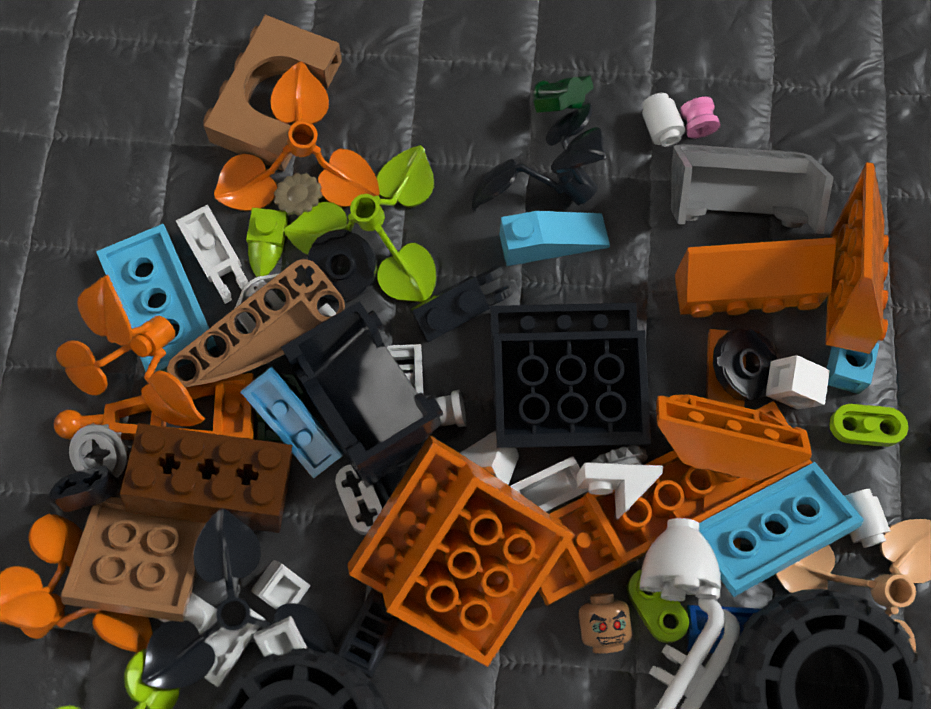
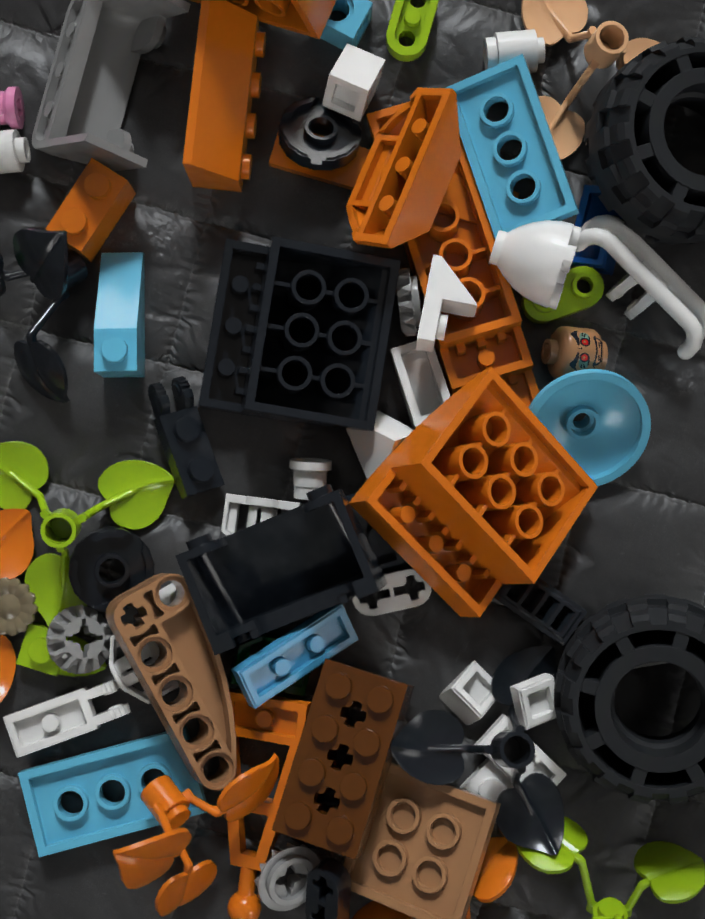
camera: 85 degrees left, 15 degrees up
(266, 241) = (69, 654): none -> light grey gear
(533, 670) = (614, 424): none -> medium azure dish
(633, 196) = (92, 209): none -> orange brick

